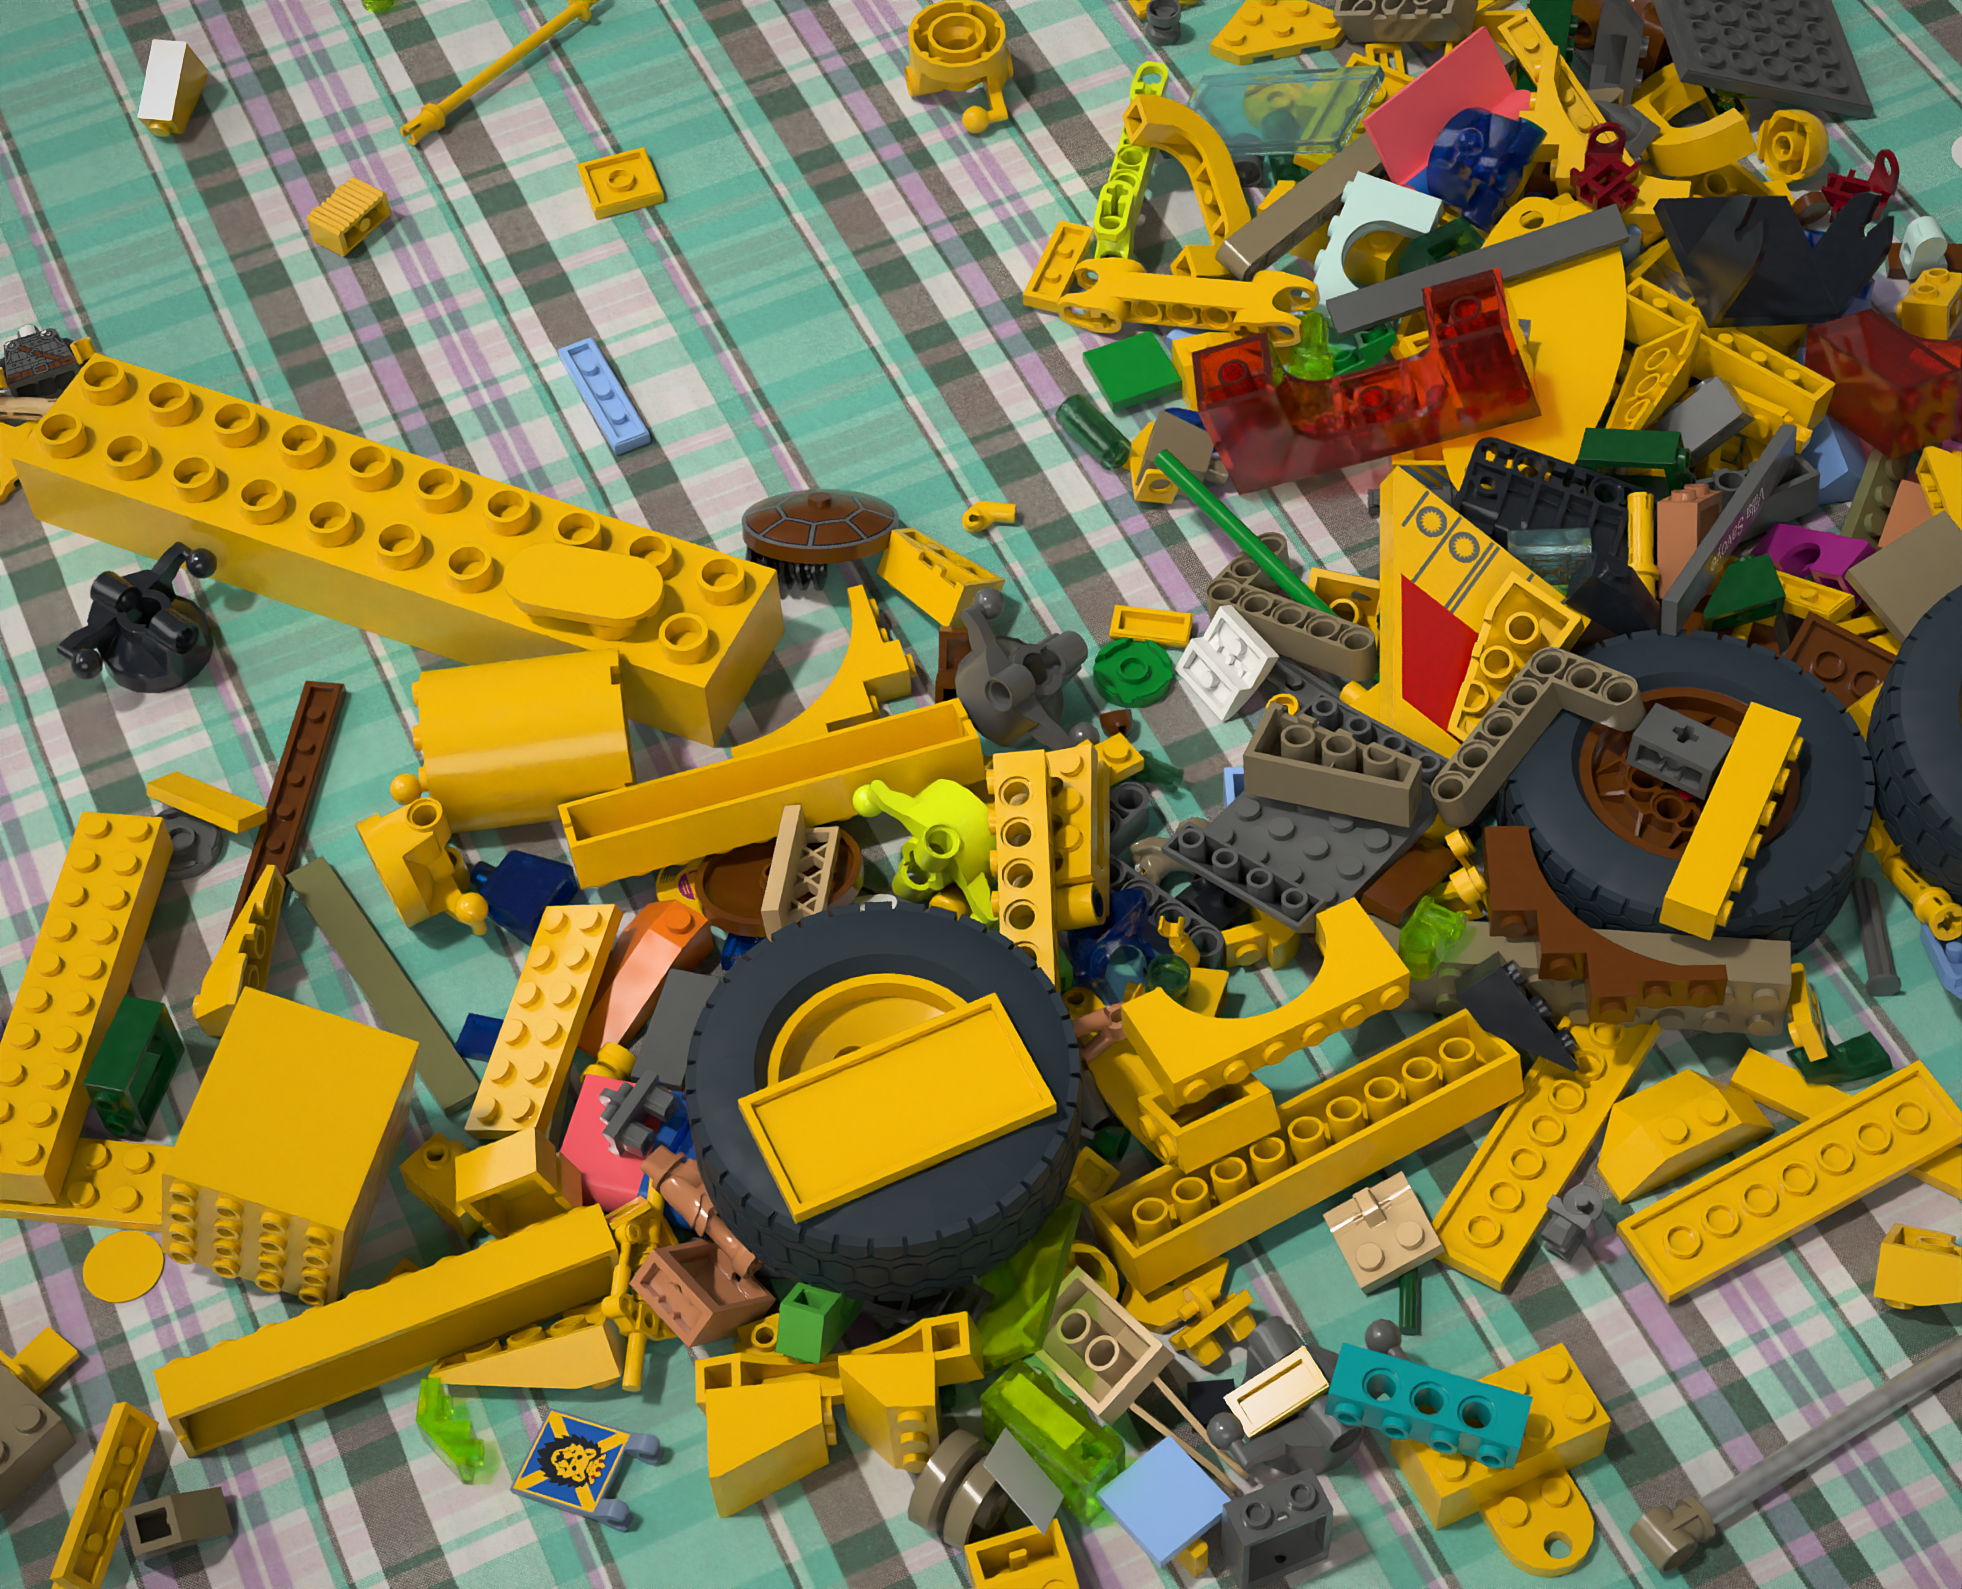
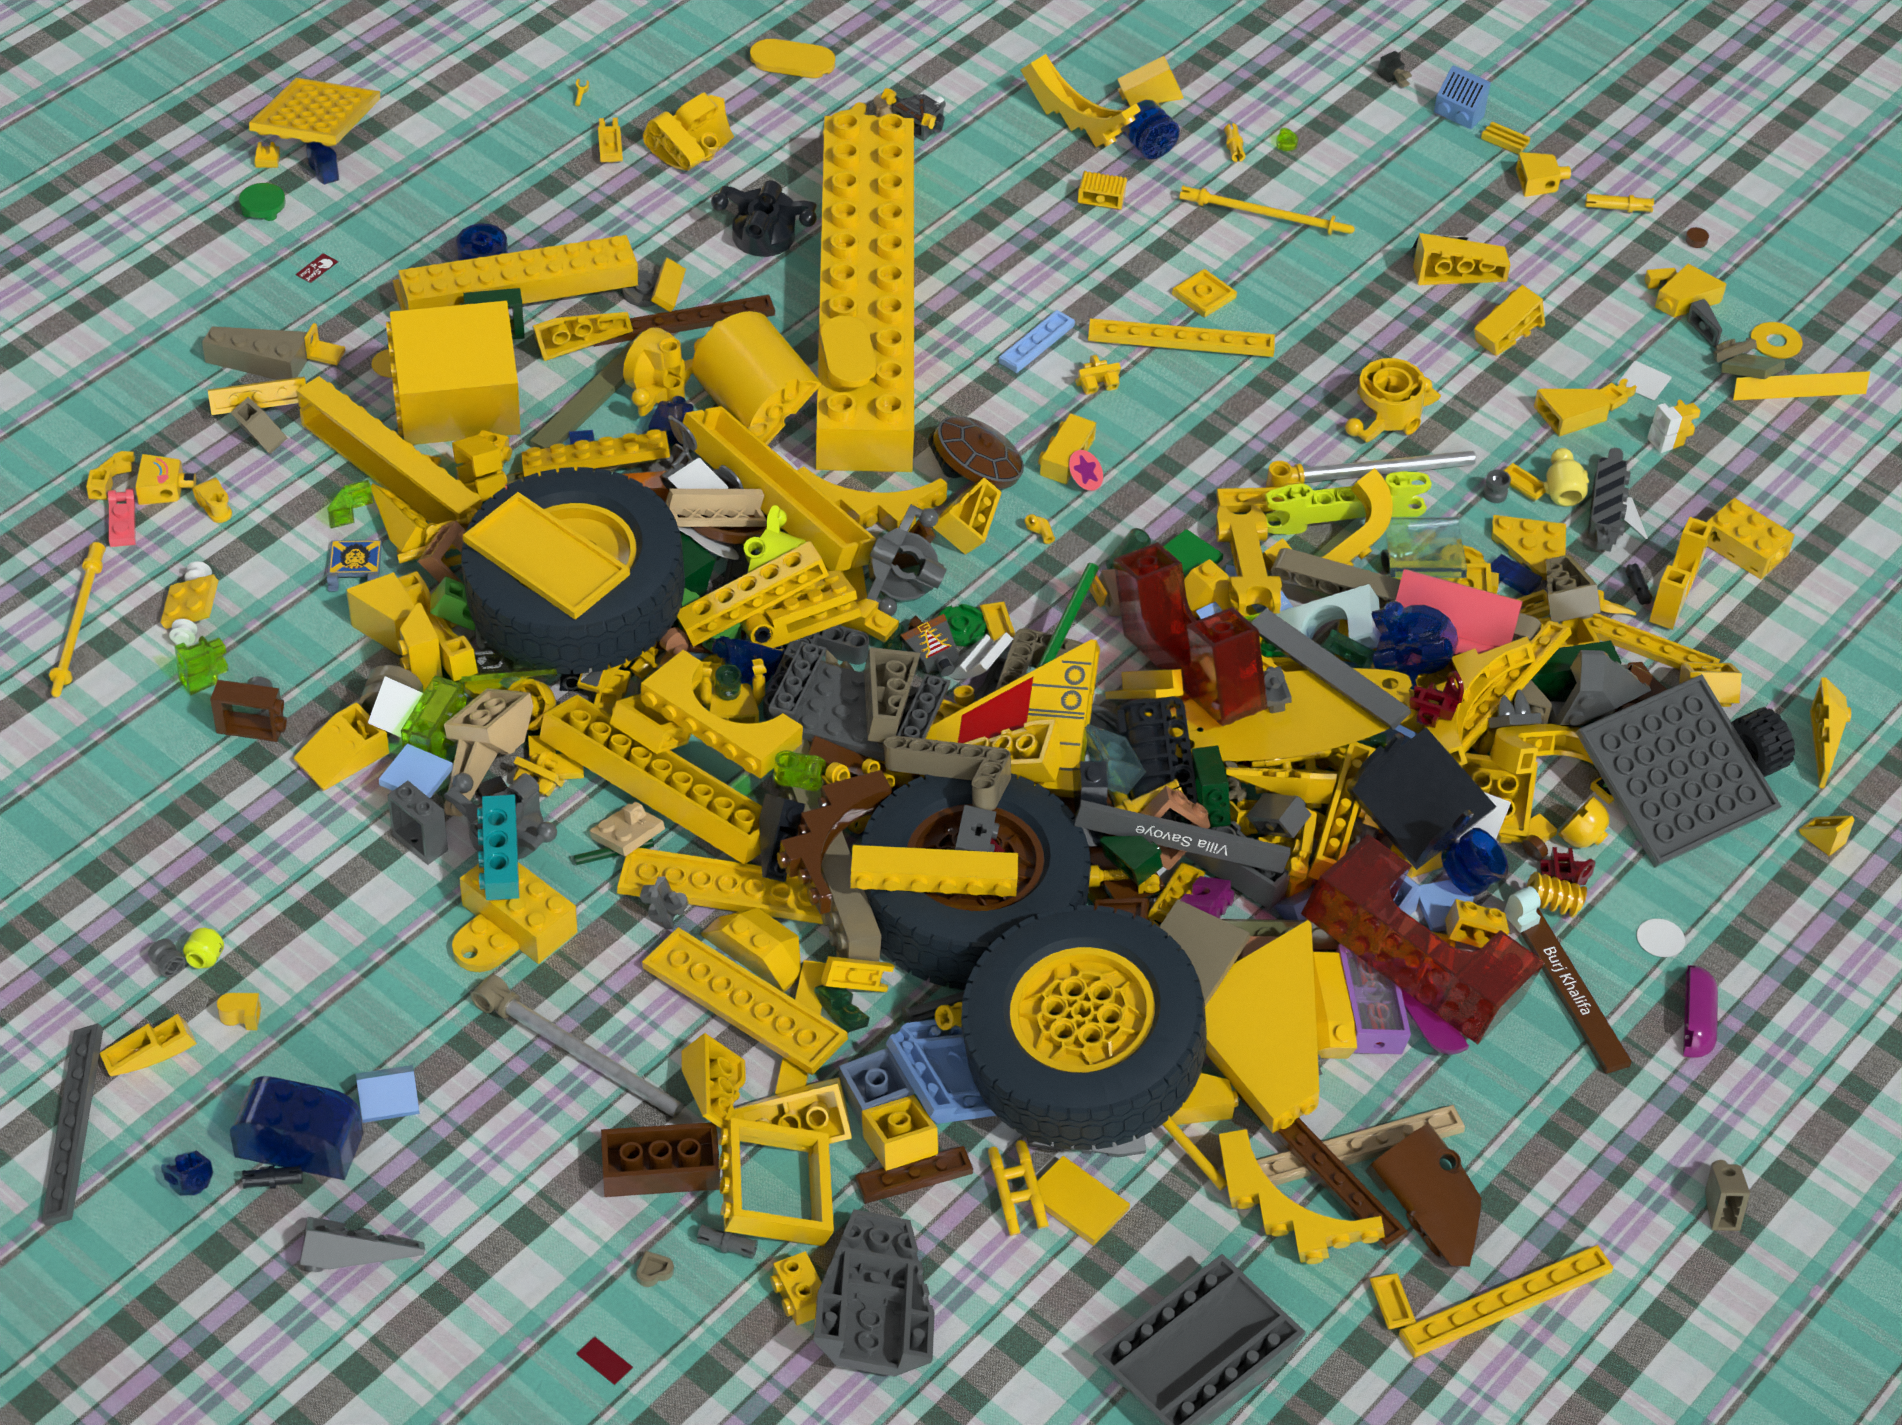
camera: 60 degrees right, 5 degrees down
(124, 192) = (1058, 96): none -> yellow arch
(273, 116) = (1152, 131): none -> clear blue wheel
(344, 48) = (1234, 142): none -> yellow pin
(688, 906) = (682, 457): none -> dark grey plant
(697, 236) = (1181, 337): none -> yellow plate
(711, 342) = (1098, 372): none -> yellow hips
(725, 883) = (697, 476): none -> white sticker
(852, 429) = (1072, 435): none -> yellow brick
(909, 422) = (1086, 470): none -> coral sticker
(1039, 205) = (1283, 474): none -> flat silver piece
(1179, 712) = (935, 645): none -> dark grey torso
(1277, 1393) = (486, 786): tile -> none
(1328, 56) = (1515, 575): none -> clear blue tile
(1424, 456) = (1148, 684): none -> yellow fence
(1908, 203) = (1558, 893): none -> yellow piece

